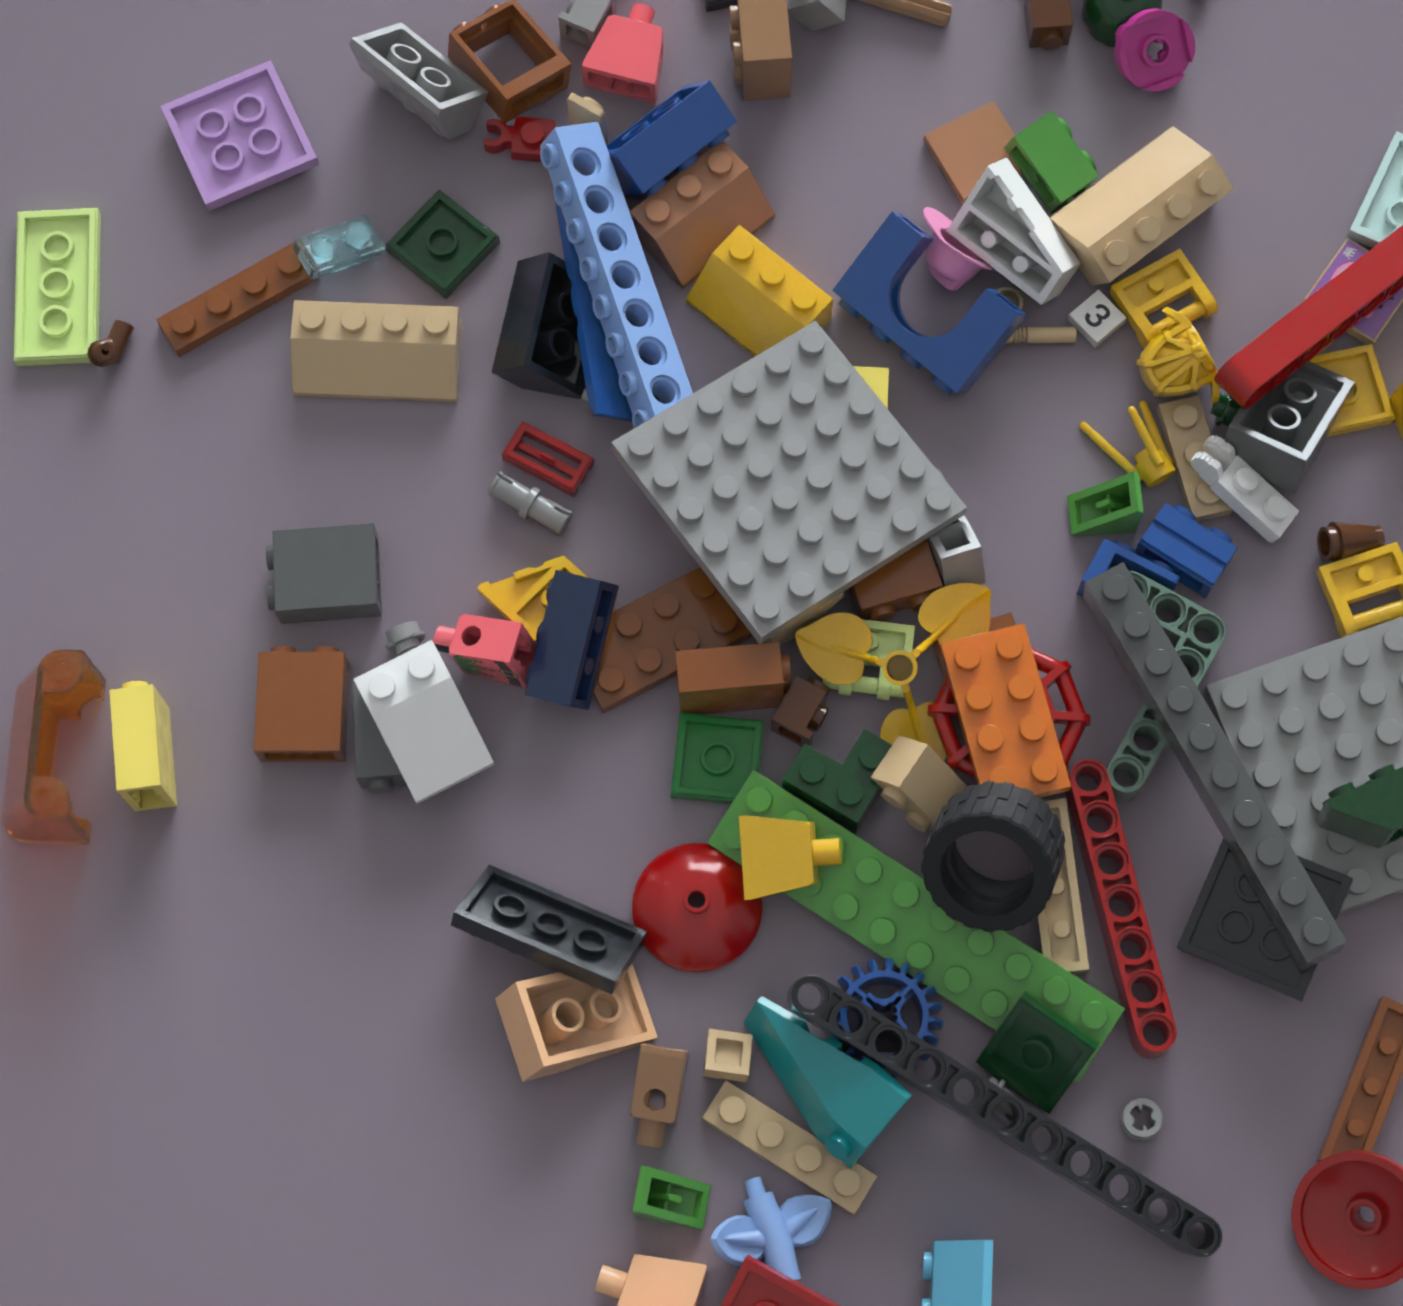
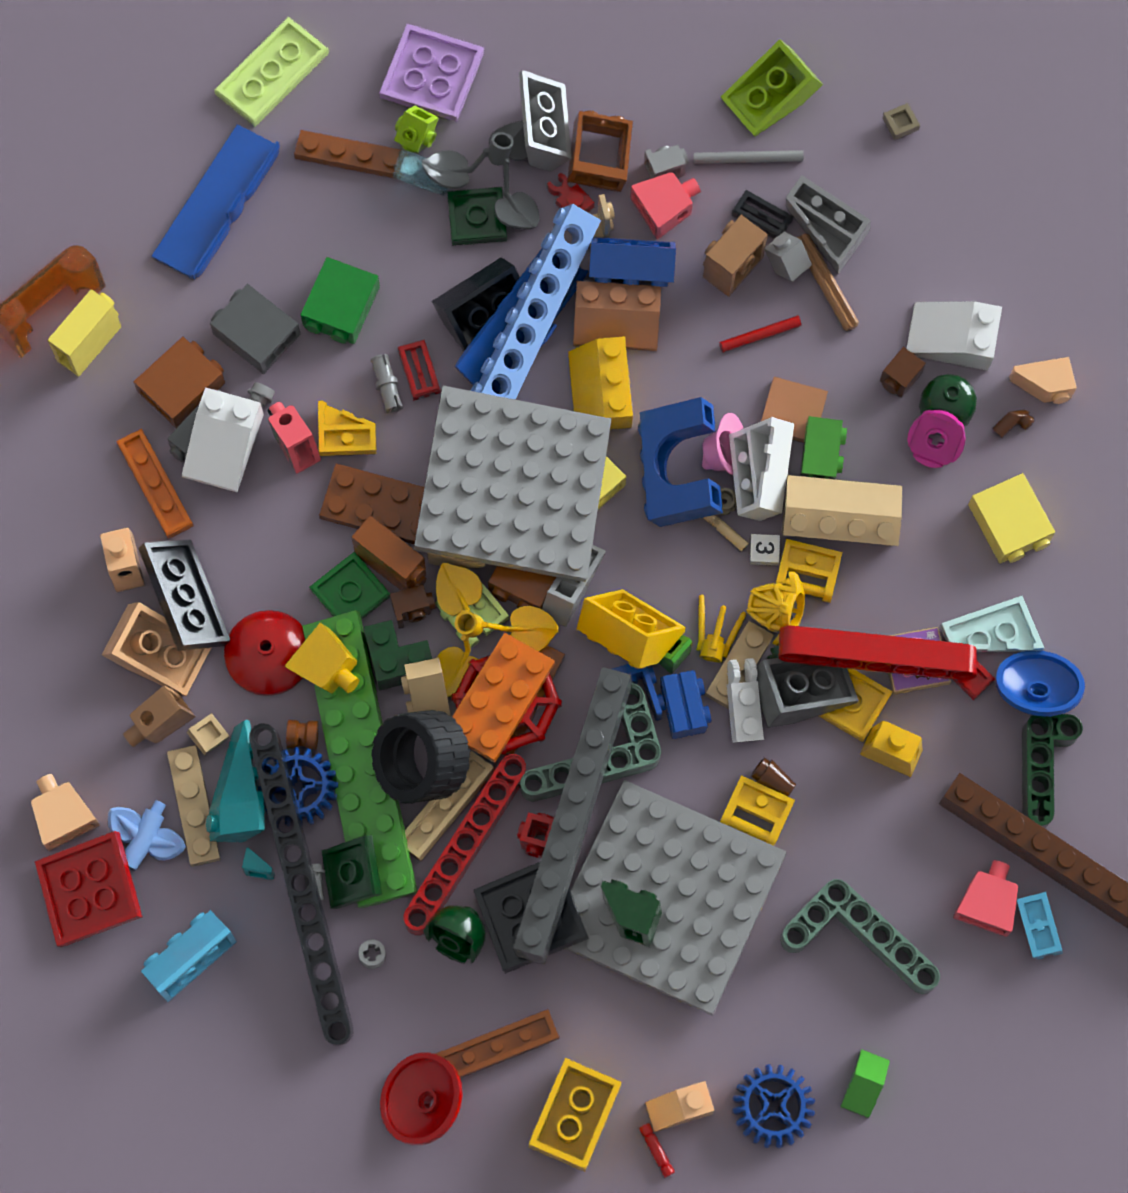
camera: 40 degrees right, 0 degrees up
(111, 349) = (264, 125): reddish brown arm -> none
(140, 479) = (216, 202): none -> blue piece
(287, 207) = (416, 129): none -> lime brick
(376, 351) = (388, 240): tan slope -> none
(384, 842) = (154, 483): none -> orange tile
(390, 461) = (340, 301): none -> green brick
(408, 141) = (508, 142): none -> dark grey plant
(439, 954) = (121, 556): none -> light nougat torso
(571, 640) = (333, 466): dark blue brick -> none
(670, 1199) = (112, 773): bright green slope -> none
(829, 956) = (302, 734): none -> dark orange wheel
(863, 105) = (760, 333): none -> red bar
(928, 1145) = (256, 866): none -> teal slope
(1056, 521) = (628, 627): none -> yellow slope
(1190, 809) = (534, 826): none -> red brick
(1212, 1008) = (457, 933): none -> dark green cylinder
(1307, 65) = (1012, 519): none -> light yellow brick

